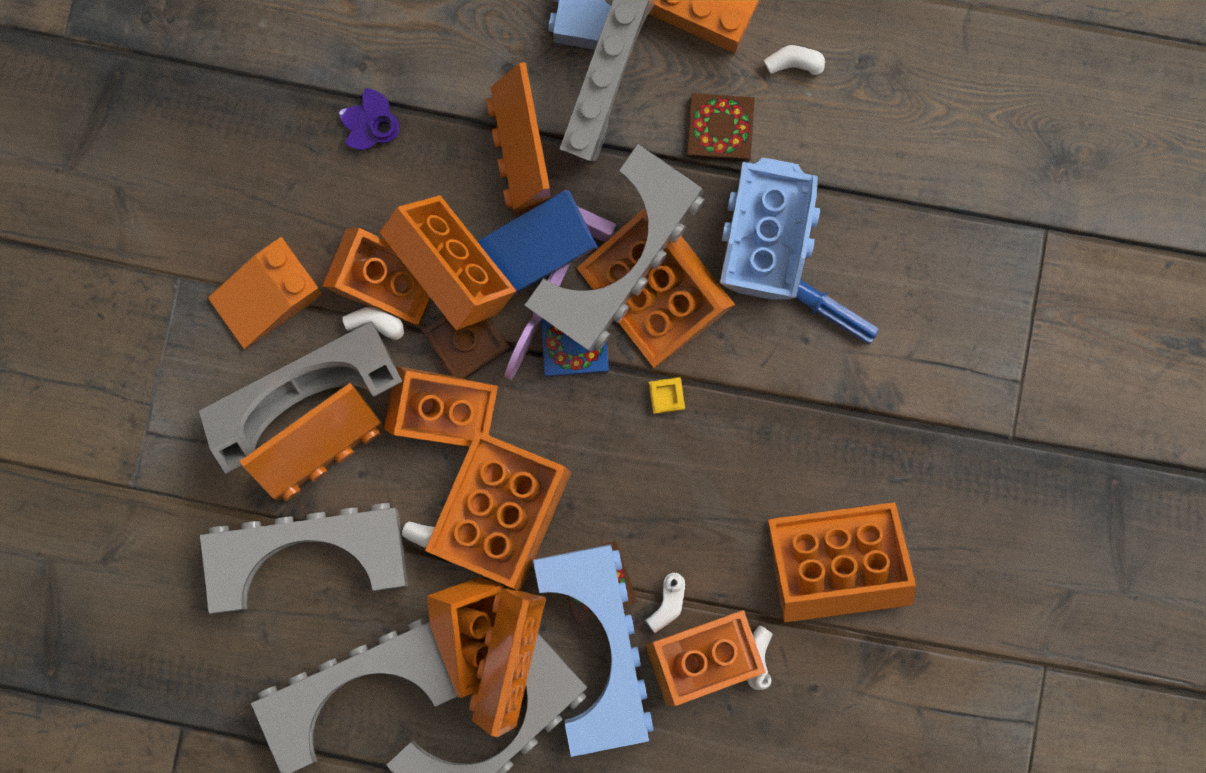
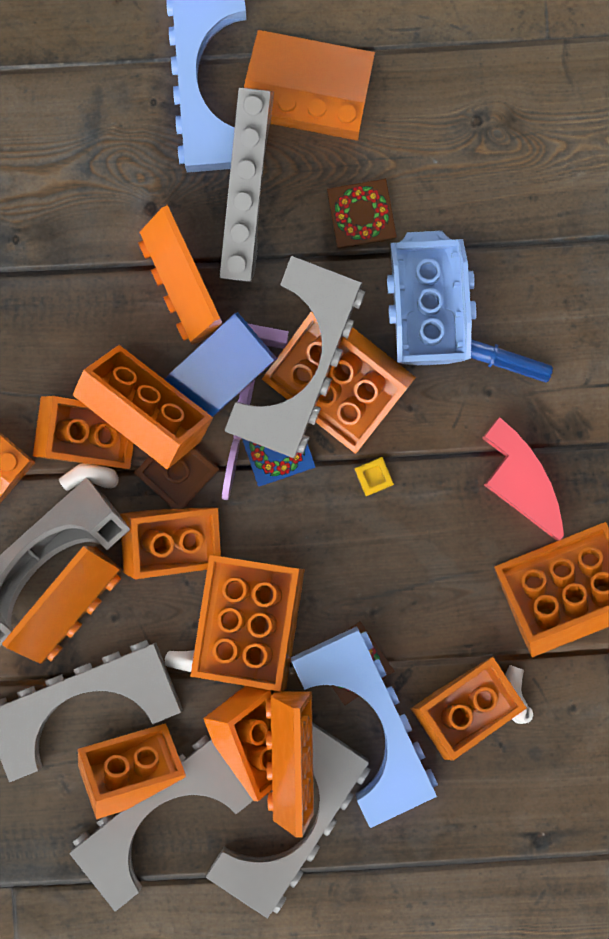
camera: 10 degrees left, 5 degrees up
(335, 631) = (129, 769): none -> orange slope
(366, 119) = (32, 288): dark purple plate -> none
(672, 602) = (426, 665): white arm -> none
(796, 57) = (415, 130): white arm -> none
(819, 437) = (522, 480): none -> coral slope

